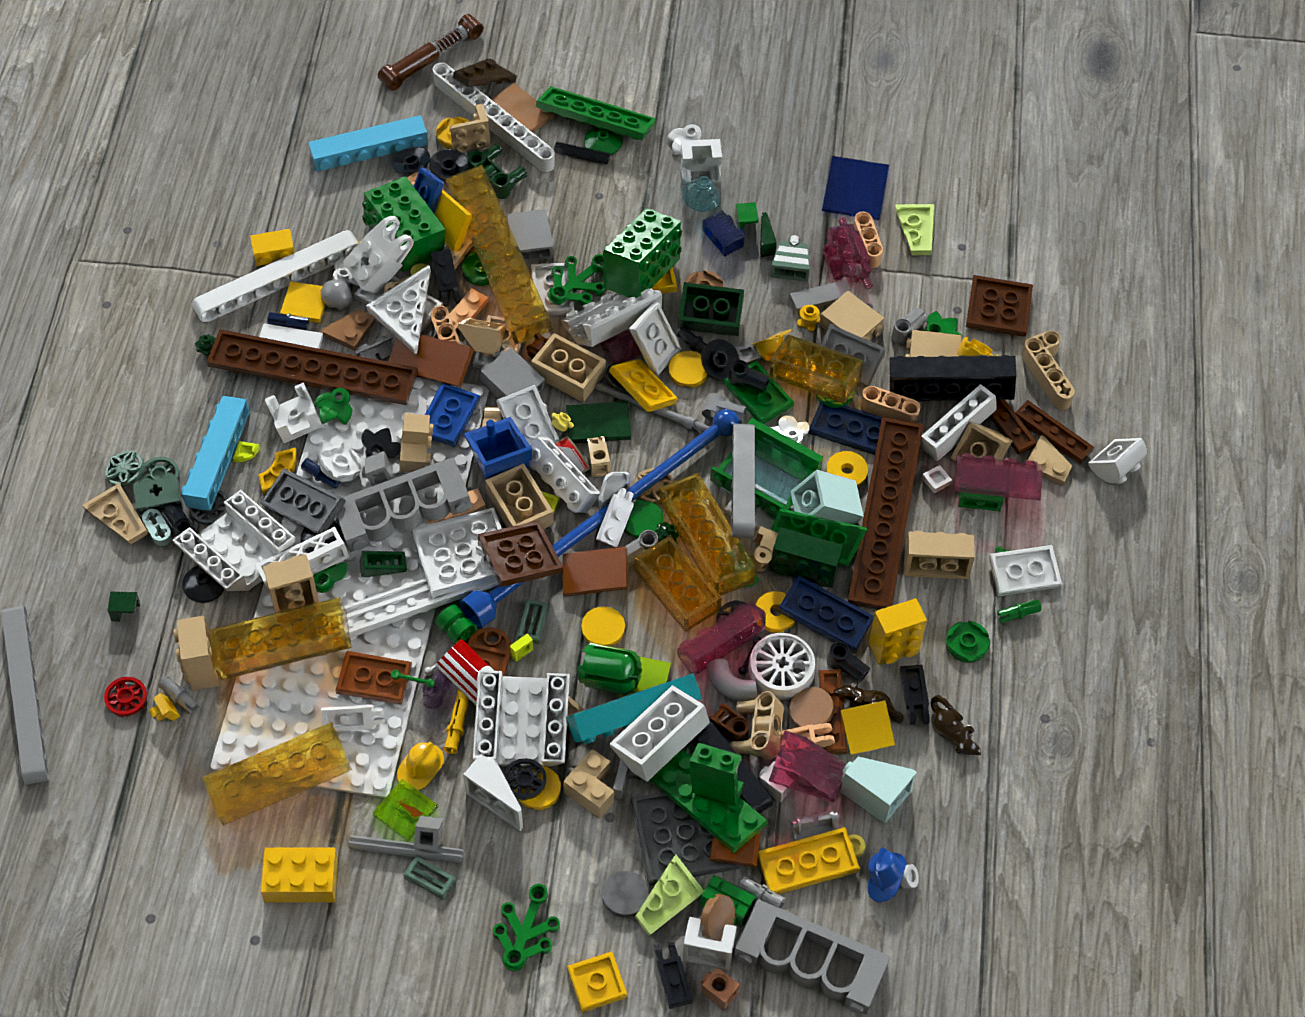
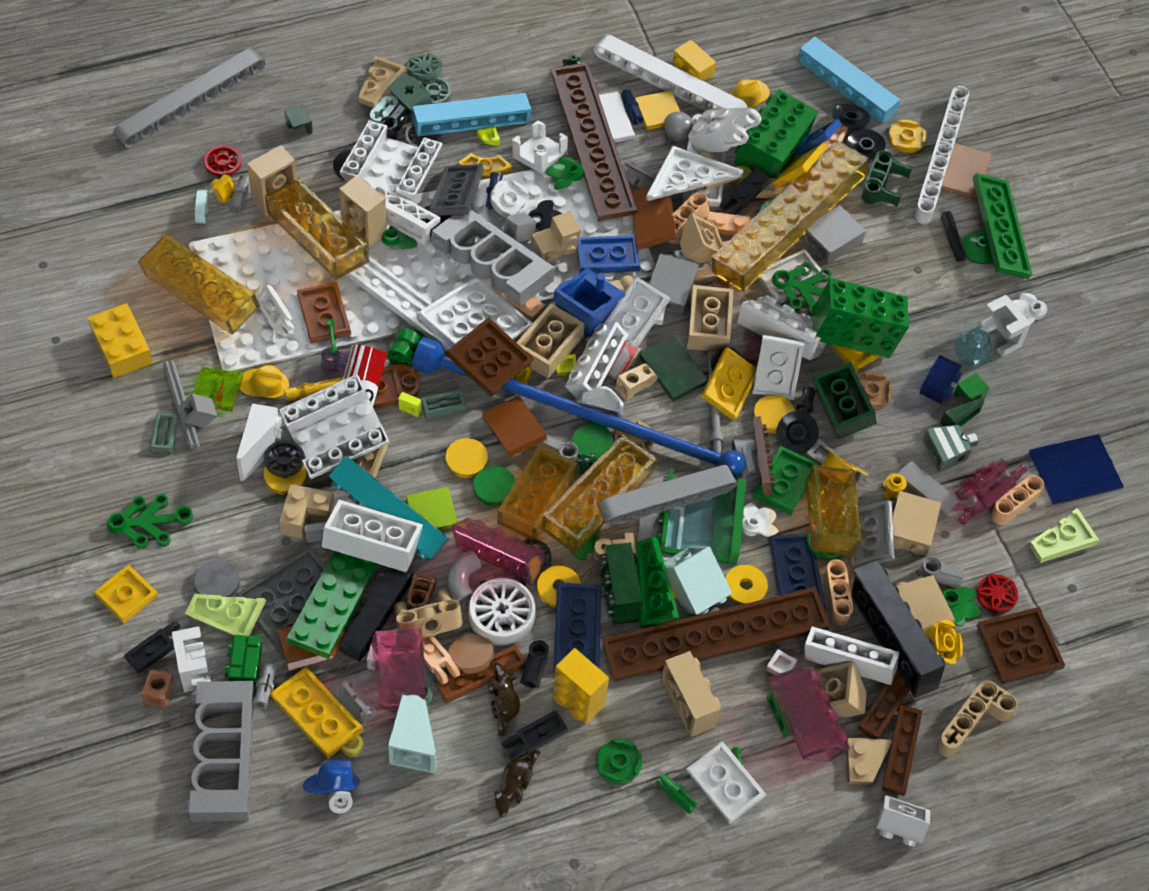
camera: 60 degrees right, 0 degrees up
(175, 737) = (201, 206): none -> light aqua beam
(330, 222) = (751, 92): none -> yellow piece
(350, 329) = (650, 151): medium nougat wing -> none
(382, 569) = (440, 268): dark green slope -> none
(394, 75) = (934, 65): reddish brown piece -> none
(471, 134) = (907, 145): tan bracket -> none
(483, 72) = (986, 127): dark brown wing -> none
(561, 421) = (652, 337): light yellow plate -> none
(610, 669) = (417, 473): green cylinder -> none
(616, 518) = (574, 418): white hinge -> none
(645, 617) = (493, 485): none -> green tile
(715, 774) = (342, 588): green panel -> none
(716, 915) = (216, 649): medium nougat tile -> none
(741, 396) = (765, 462): none -> reddish brown plate
(747, 376) = (789, 460): black piece -> none
(868, 727) = (473, 705): yellow tile -> none
(943, 298) = (997, 593): none -> red wheel

